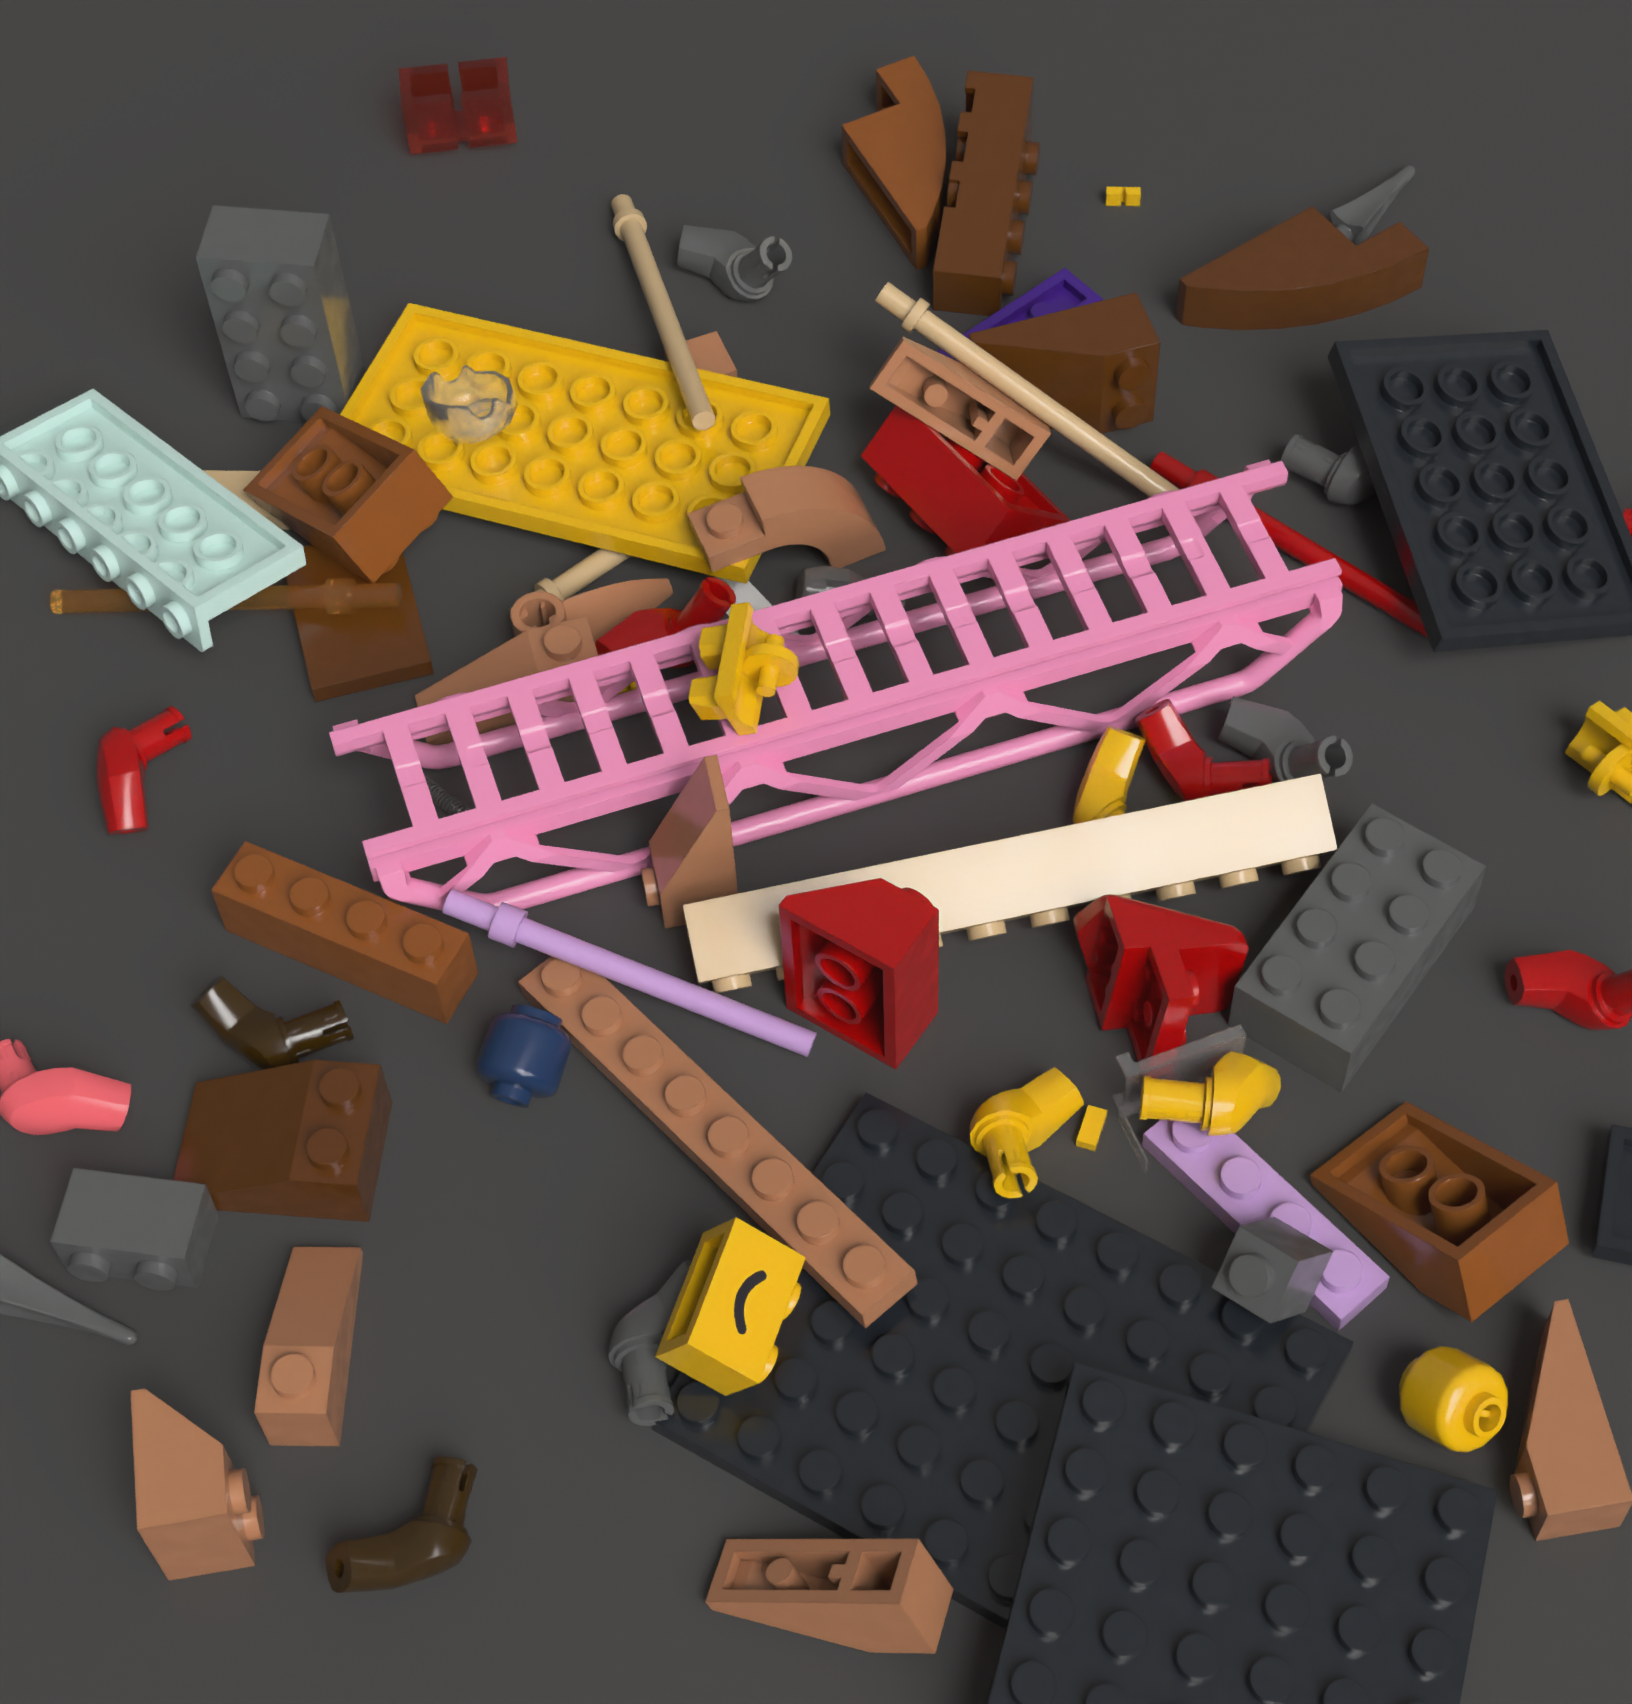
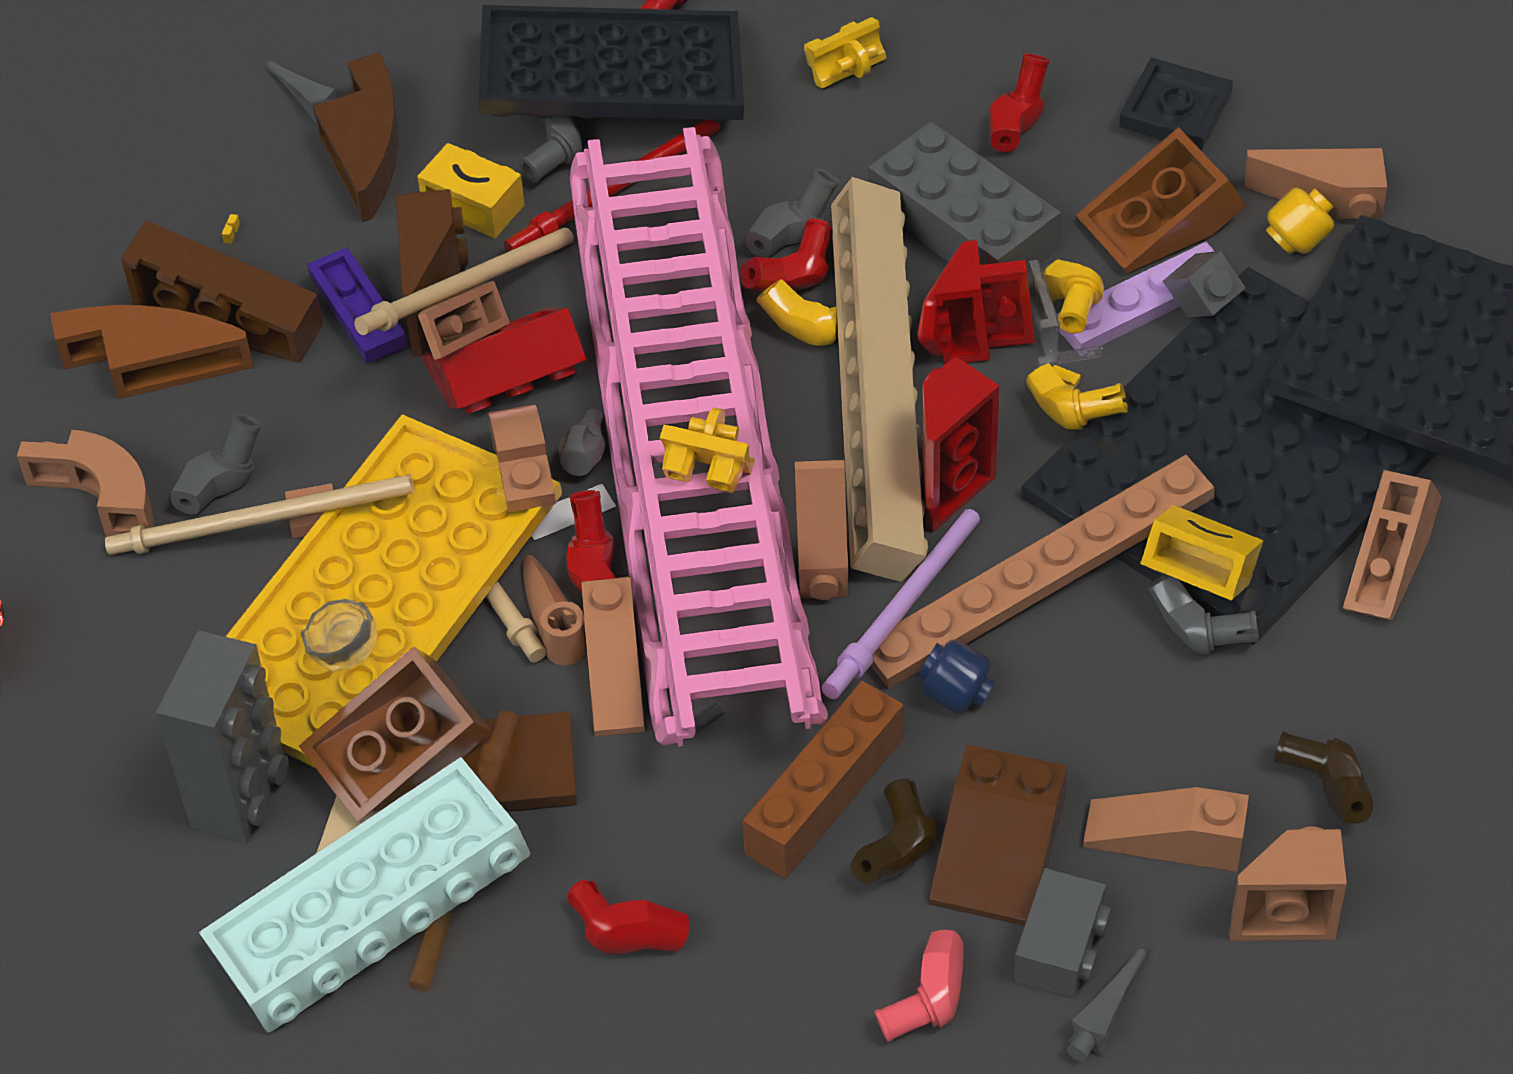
camera: 80 degrees left, 5 degrees down
(703, 177) = (94, 466): none -> nougat arch
(1238, 399) = (483, 189): none -> yellow brick

